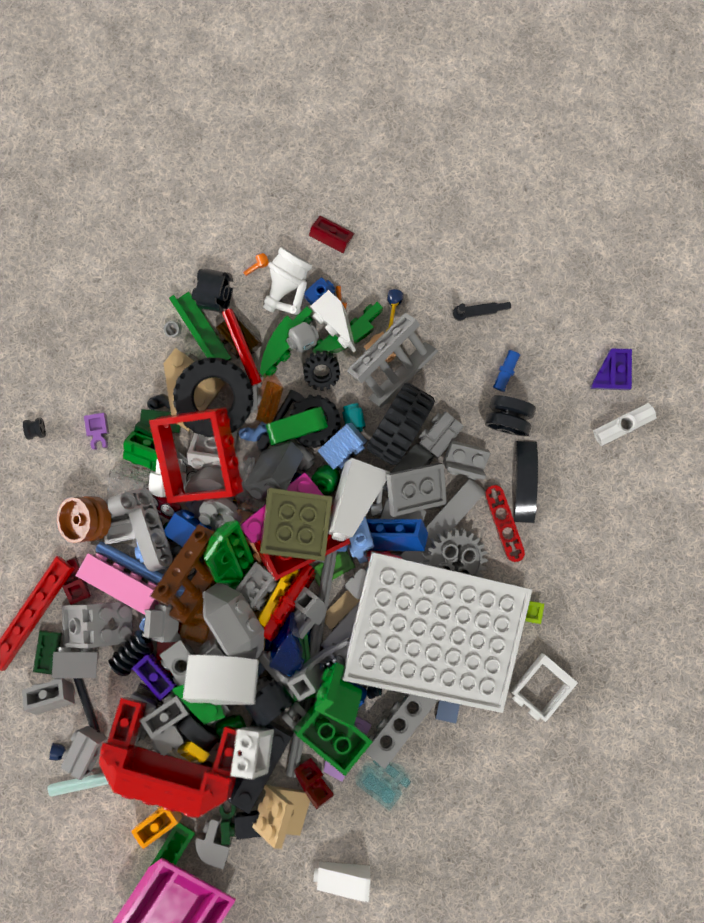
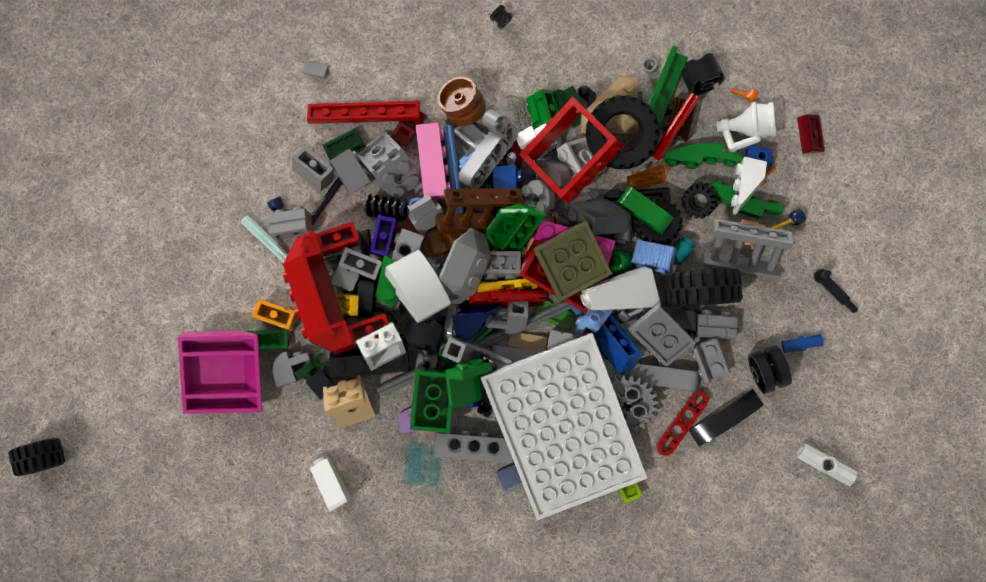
camera: 50 degrees right, 0 degrees up
(96, 426) = (534, 62): medium lavender plate -> none
(253, 434) = (613, 182): medium blue arm -> none
(302, 337) = (715, 167): light grey head -> none
(312, 783) = (383, 412): dark red slope -> none
(558, 698) = (596, 555): white window -> none
(615, 371) = (863, 429): dark purple wing -> none

